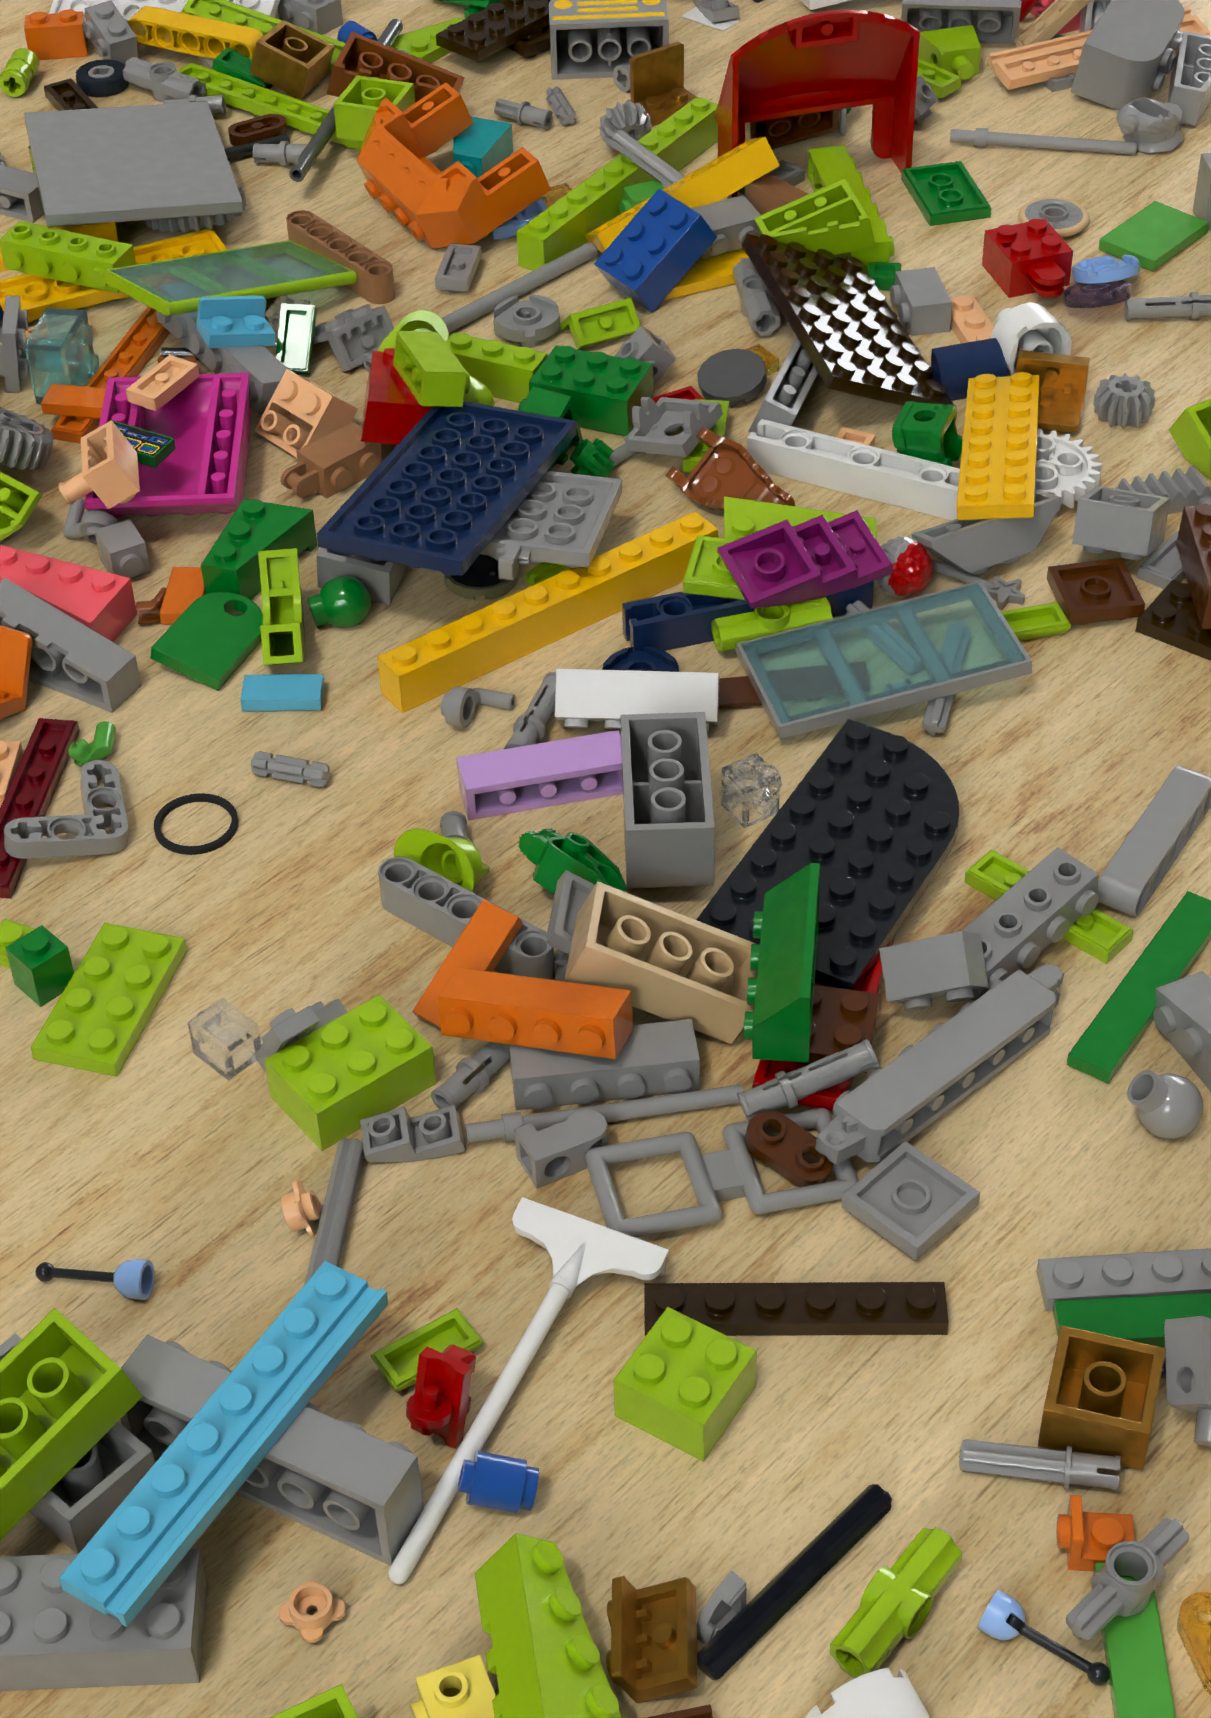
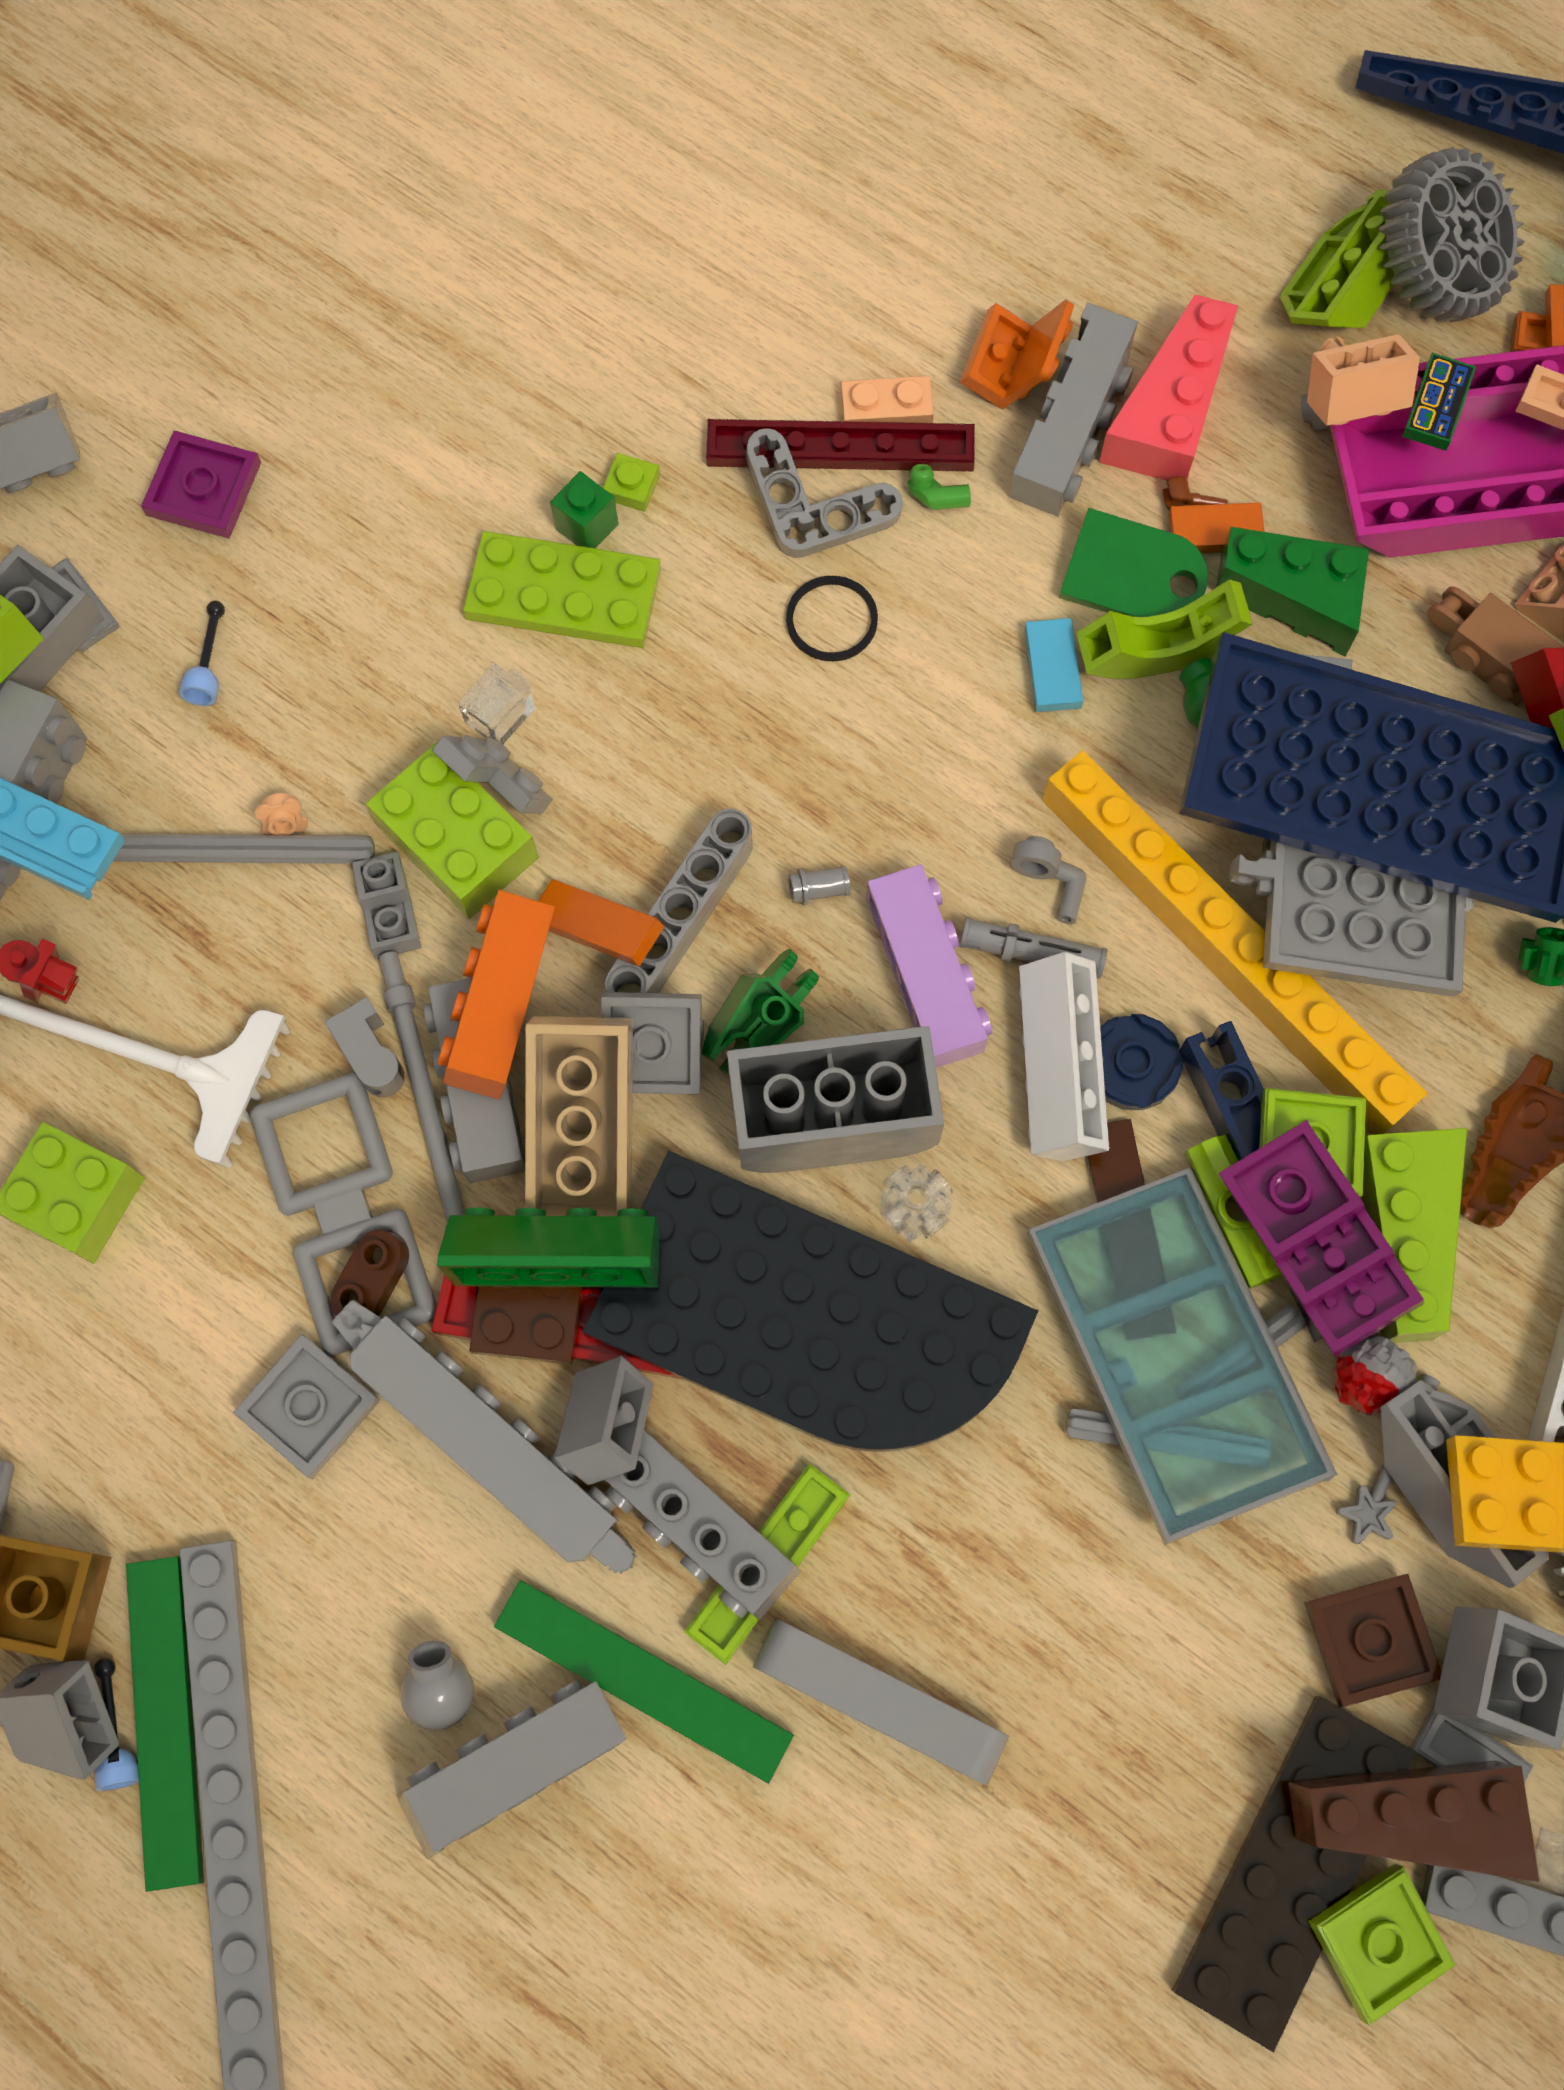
camera: 85 degrees right, 30 degrees up
(122, 550) = (1277, 442): light grey brick -> none
(290, 769) = (920, 696): light grey axle -> none
(400, 1359) = (123, 955): lime tile -> none
(447, 856) = (761, 885): lime piece -> none
(453, 1090) = (450, 939): light grey pin -> none
(791, 1087) = (456, 1336): light grey pin -> none
(804, 1307) = (176, 1299): dark brown plate -> none
(1037, 621) = (1301, 1547): lime tile -> none

